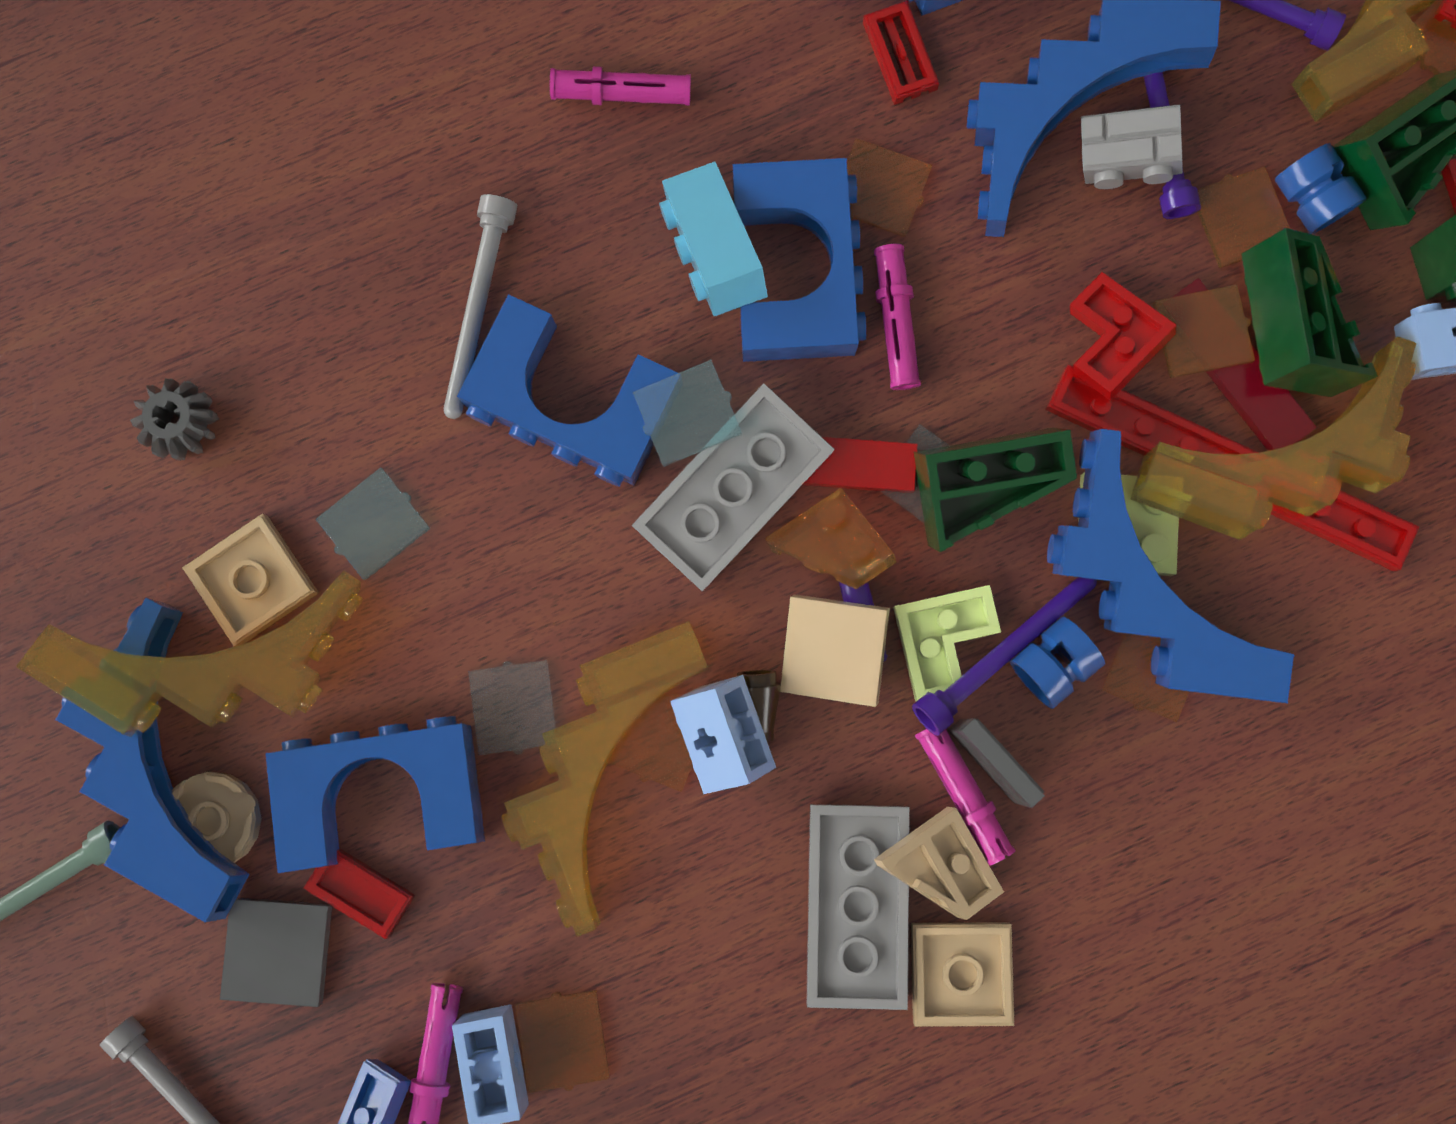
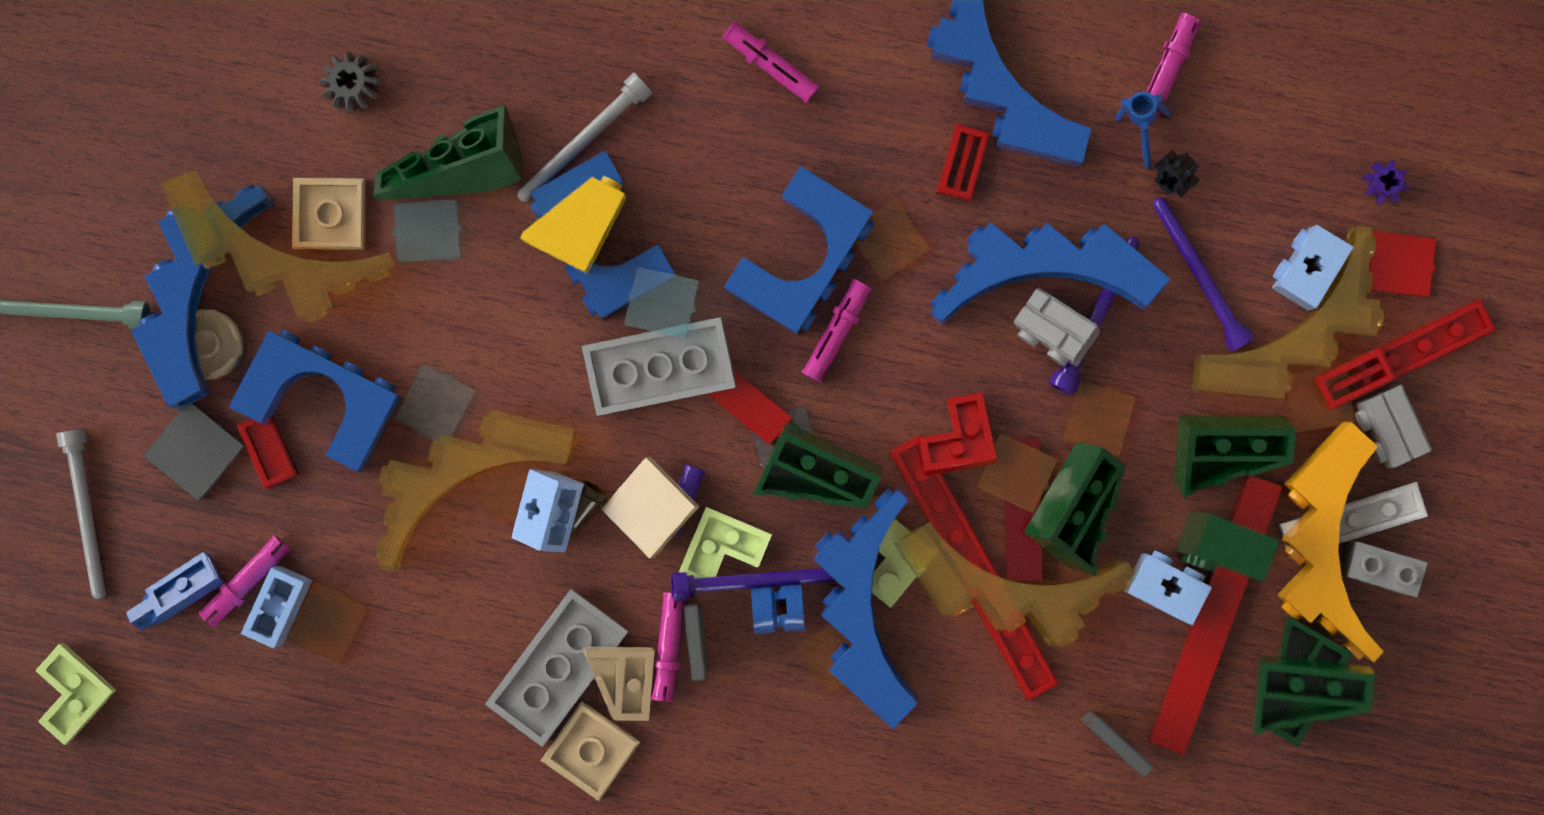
camera: 30 degrees right, 5 degrees up
(371, 409) = (470, 161): none -> dark green wedge
(533, 389) = (578, 224): none -> yellow slope
(712, 239) = (753, 204): medium azure brick -> none
(835, 541) = (697, 441): clear orange wing -> none
(1320, 188) = (1153, 436): blue wheel -> none

